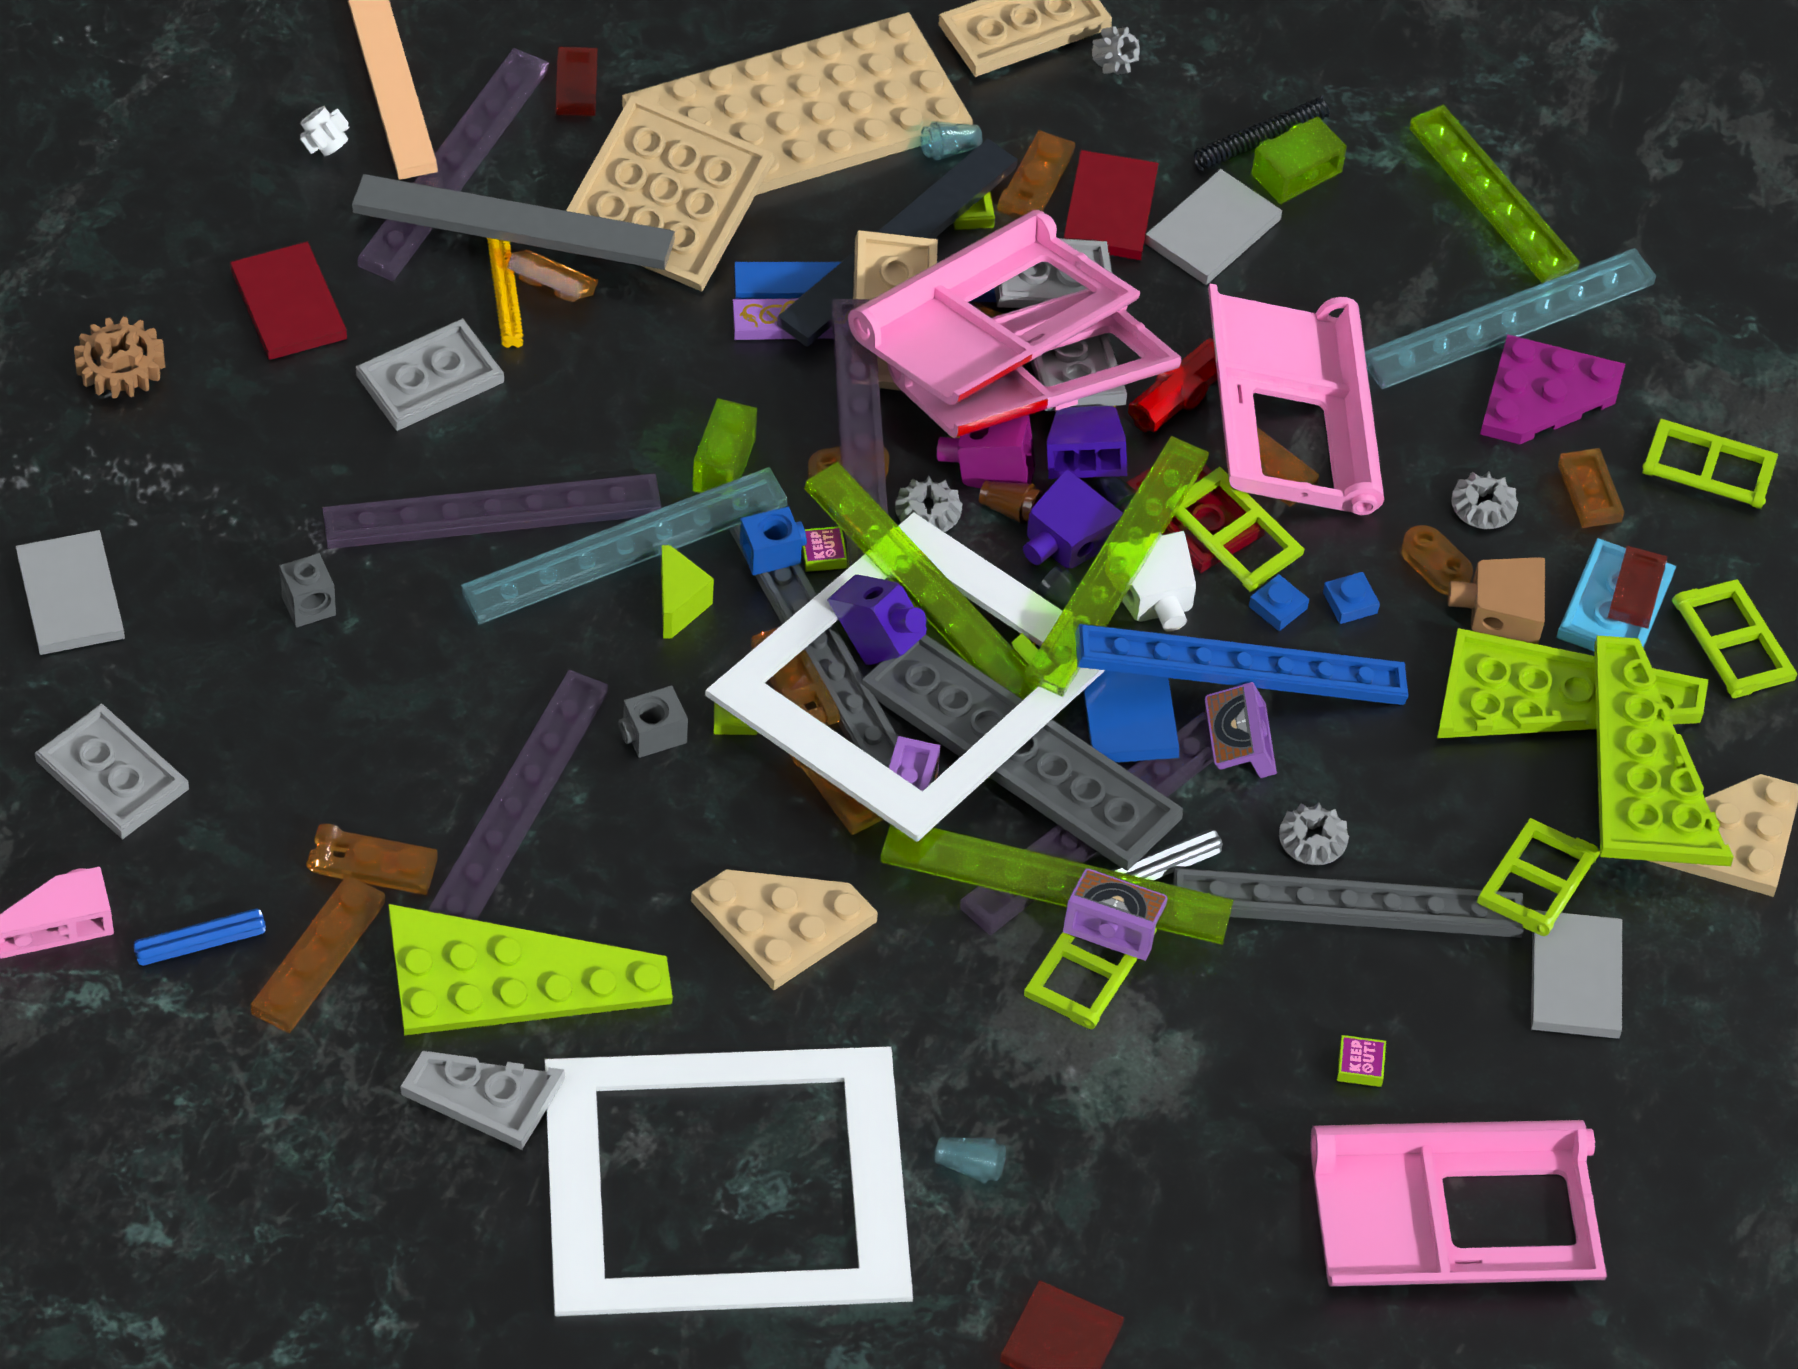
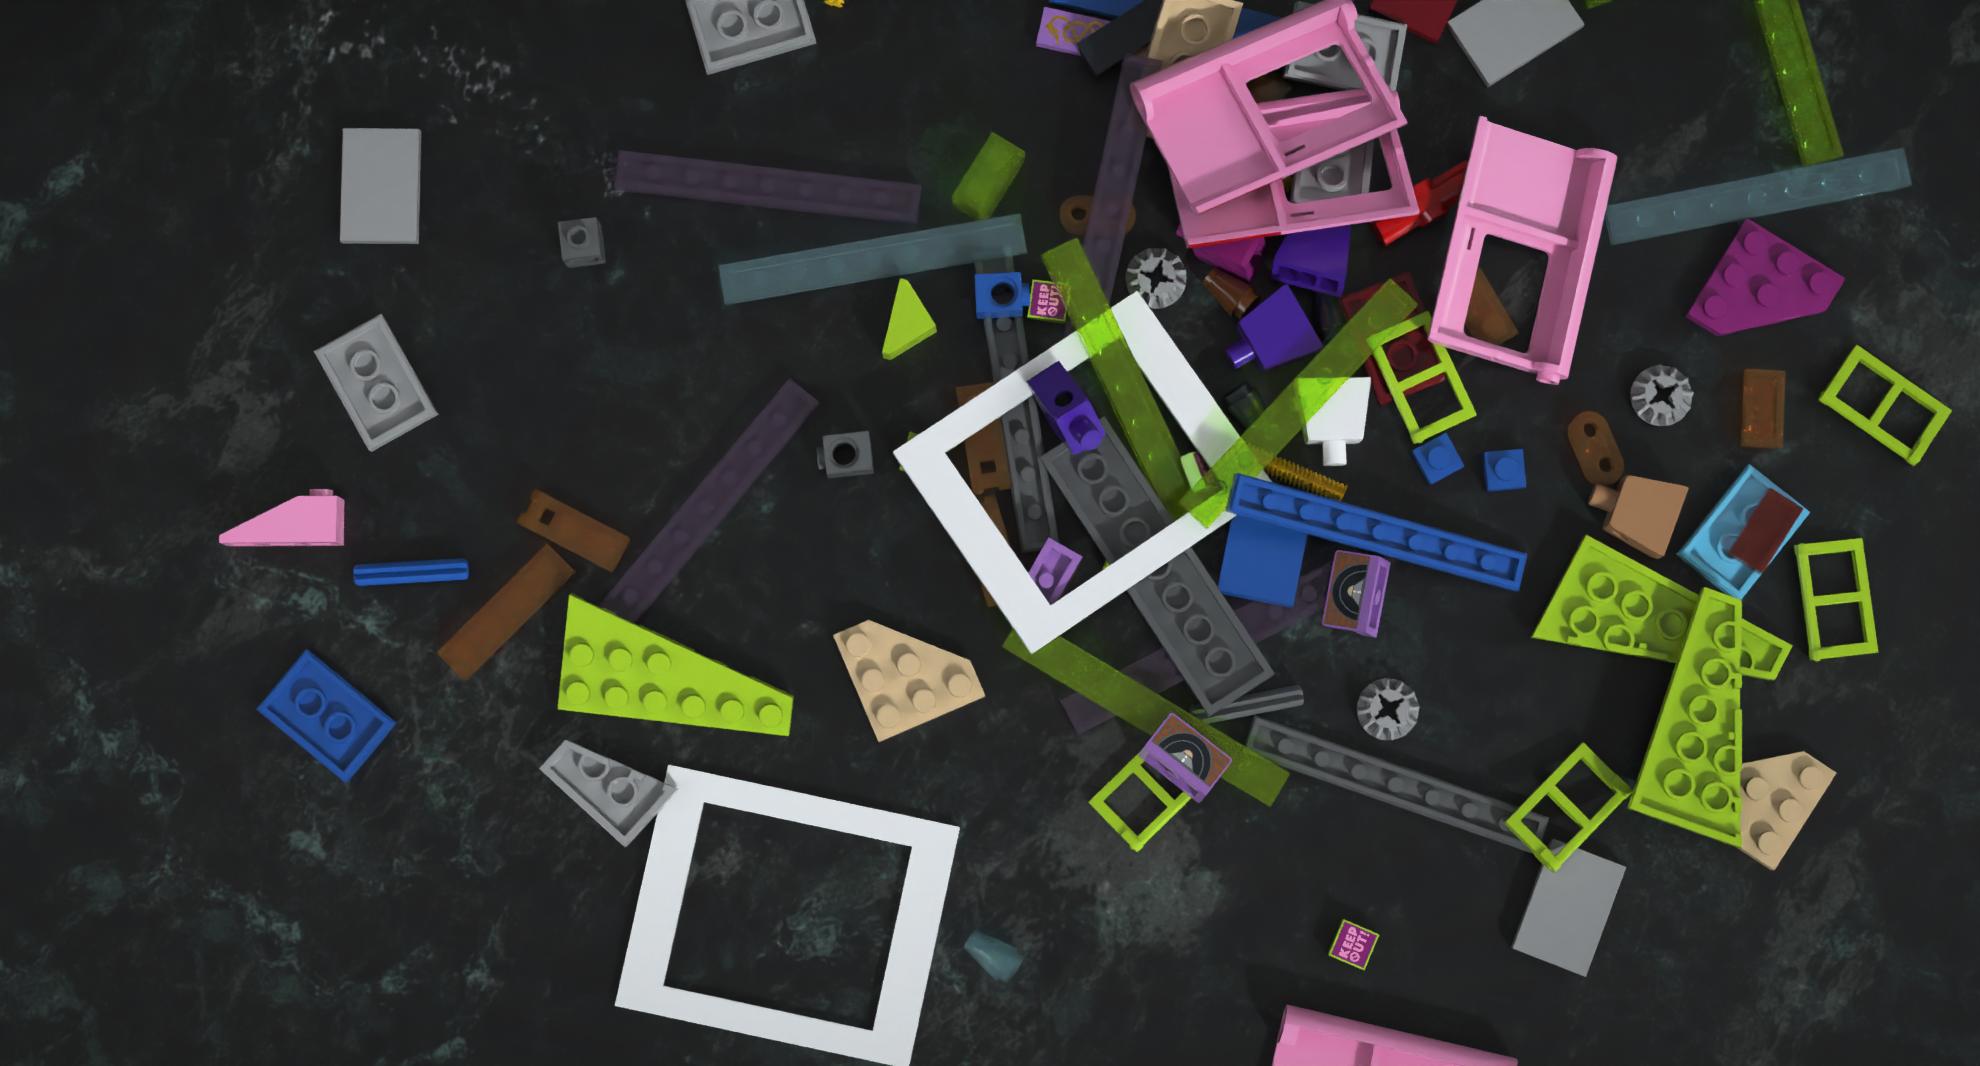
camera: 20 degrees right, 30 degrees up
(138, 1098) = (326, 715): none -> blue tile

